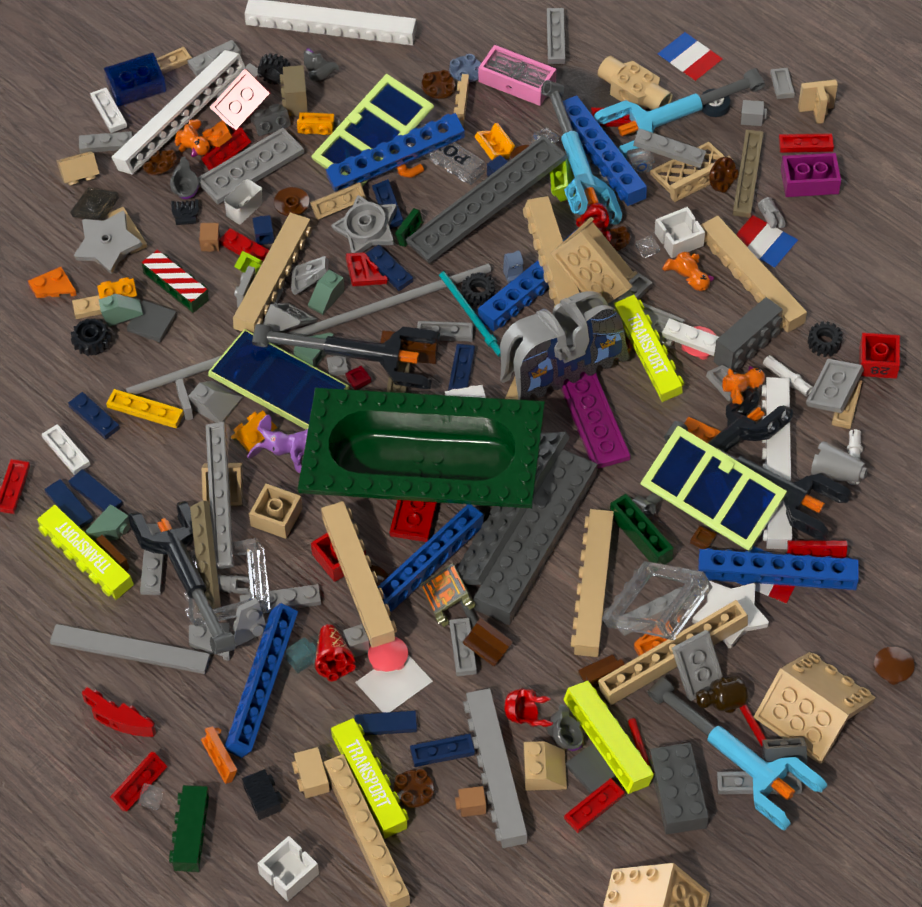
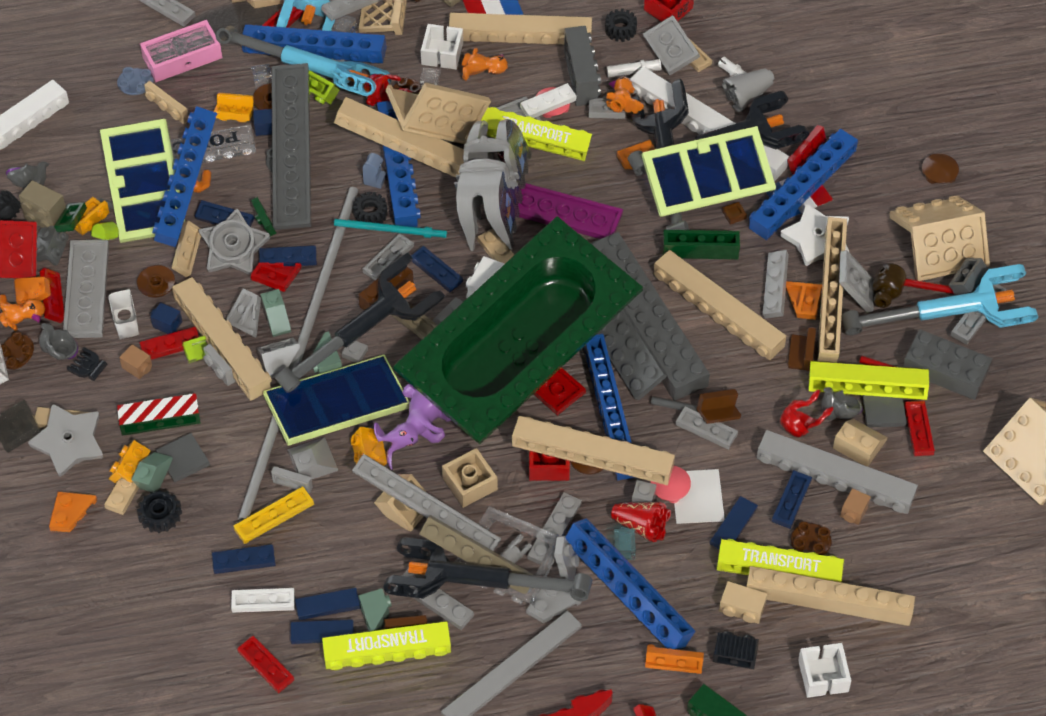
camera: 55 degrees left, 0 degrees up
(299, 112) = (70, 217): none -> dark green plate
(309, 141) = (105, 231): none -> lime brick
(358, 377) = (382, 343): dark red plate -> none
(438, 84) = (132, 109): reddish brown dish -> none
(446, 590) = (646, 406): flag -> none
(677, 613) = (815, 274): clear windscreen -> none

